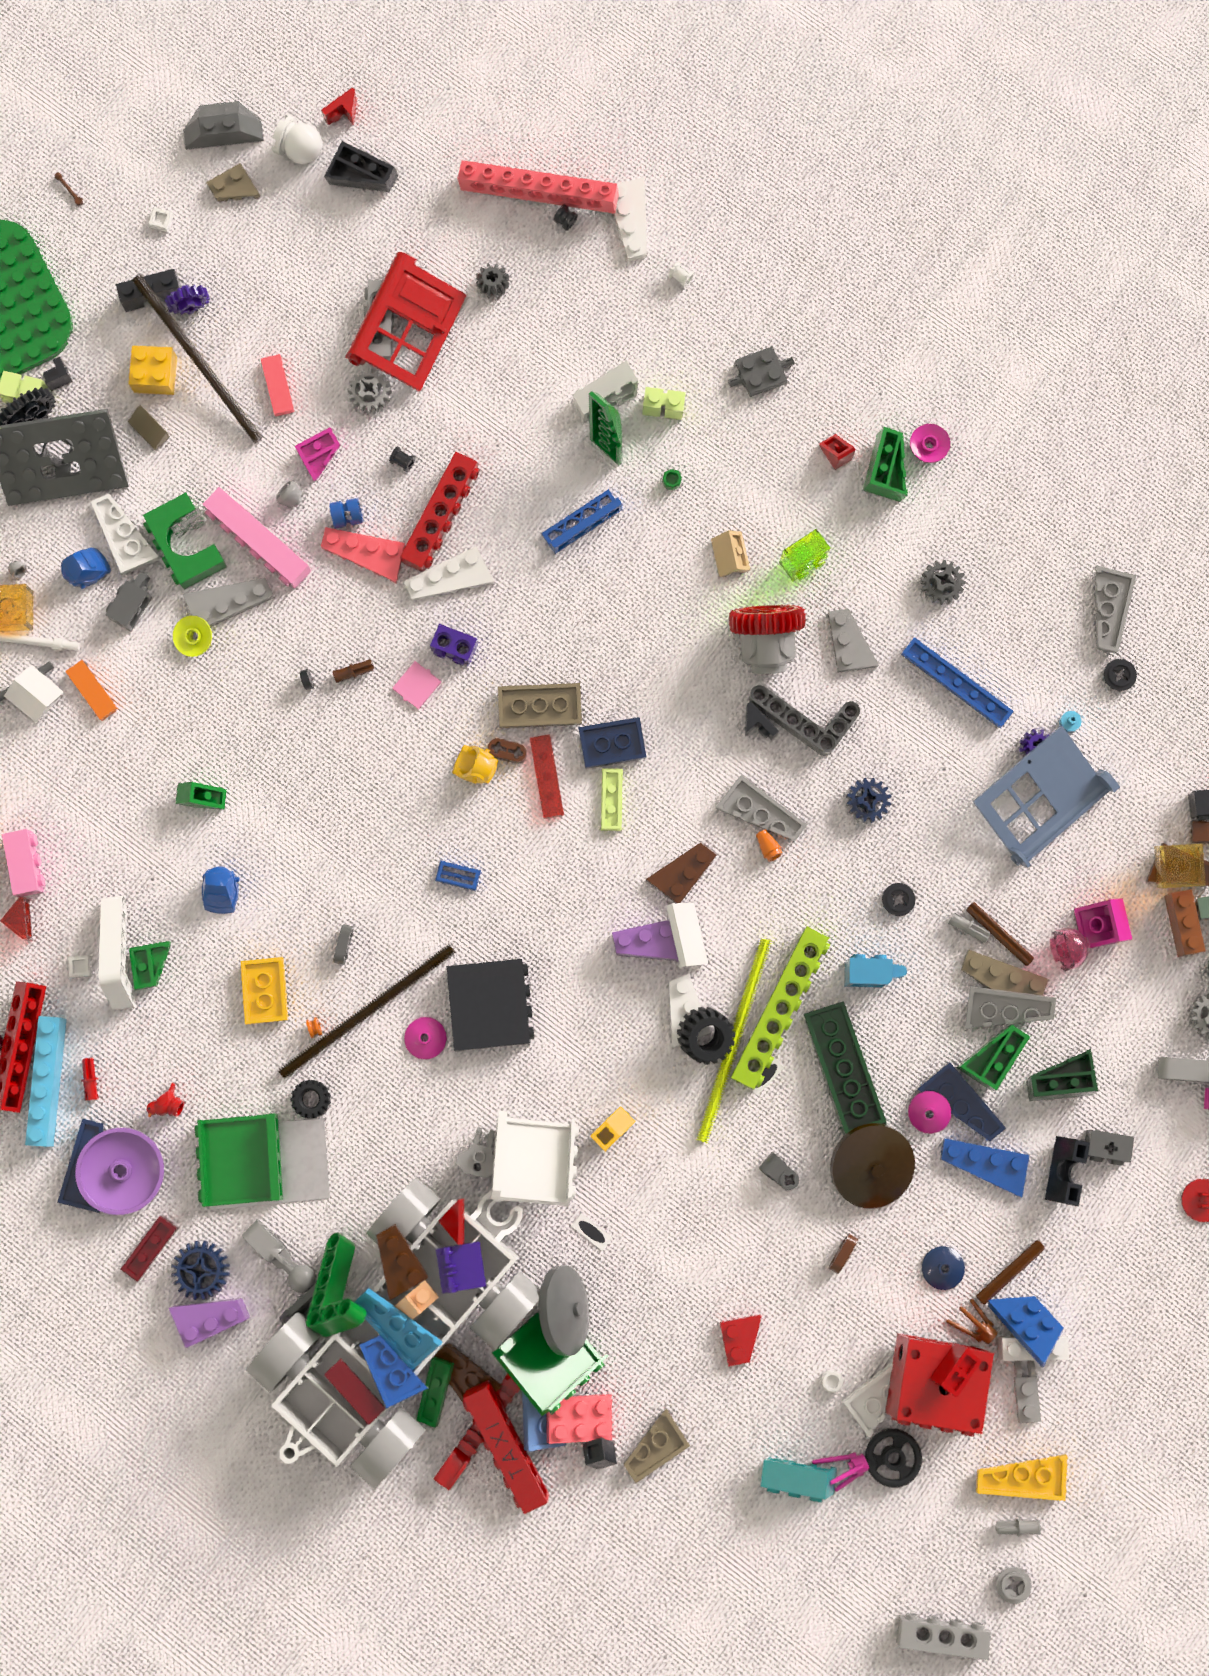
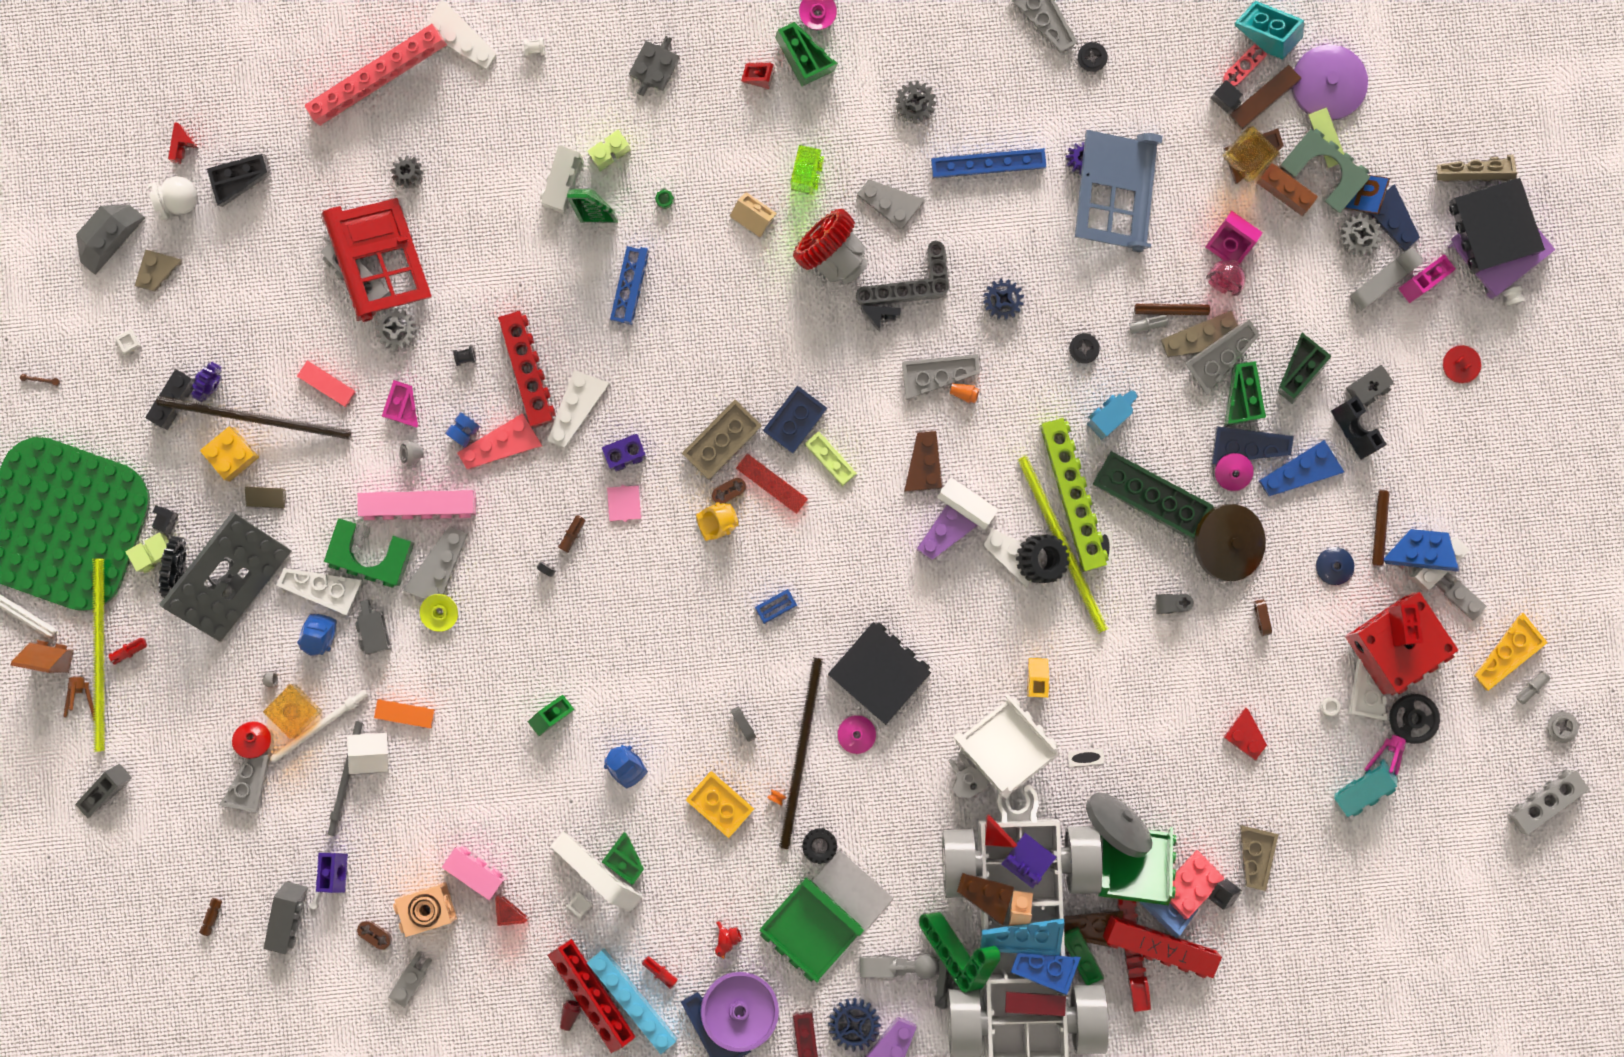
camera: 40 degrees left, 5 degrees up
(565, 217) = (414, 79): black wheel -> none
(984, 1329) = (1399, 582): dark orange plant -> none
(1070, 721) = (1085, 123): medium azure tile -> none

